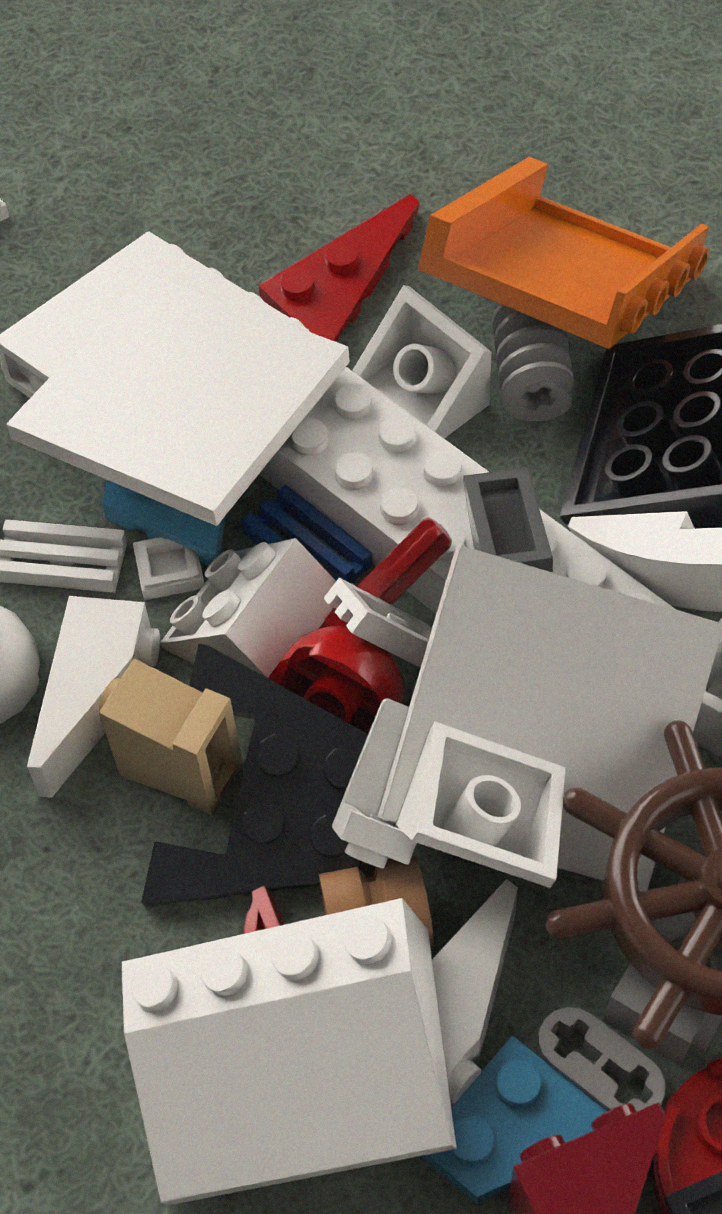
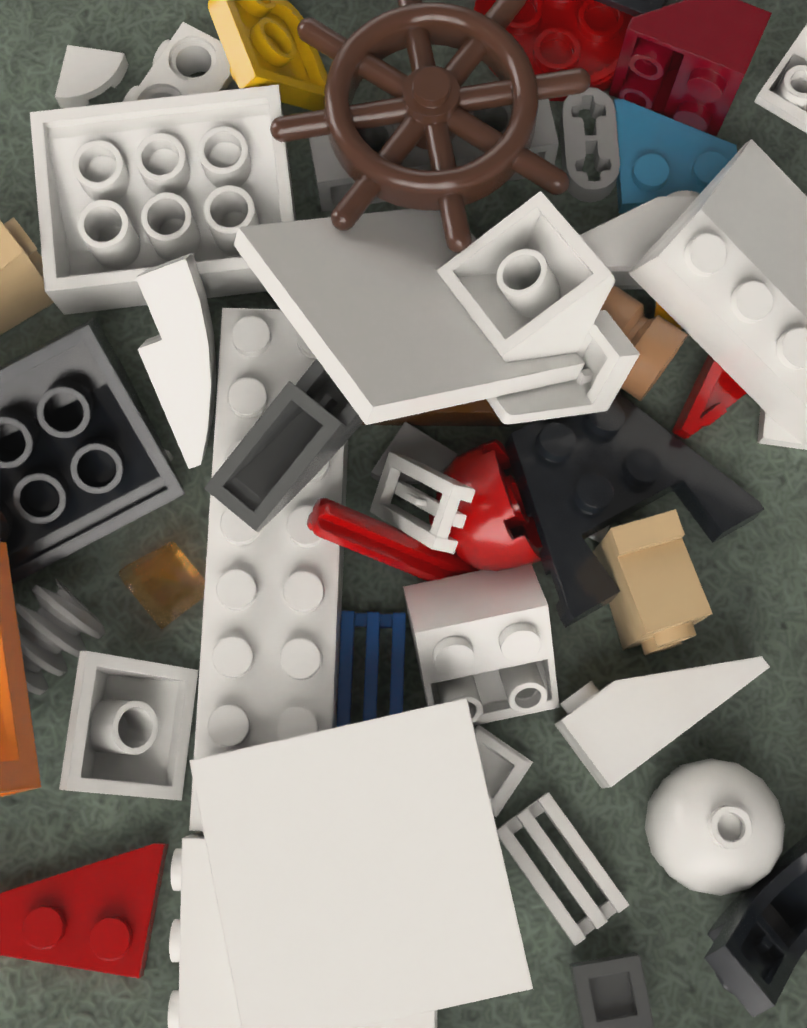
camera: 135 degrees left, 20 degrees up
(512, 453) = (164, 583): none -> clear orange slope

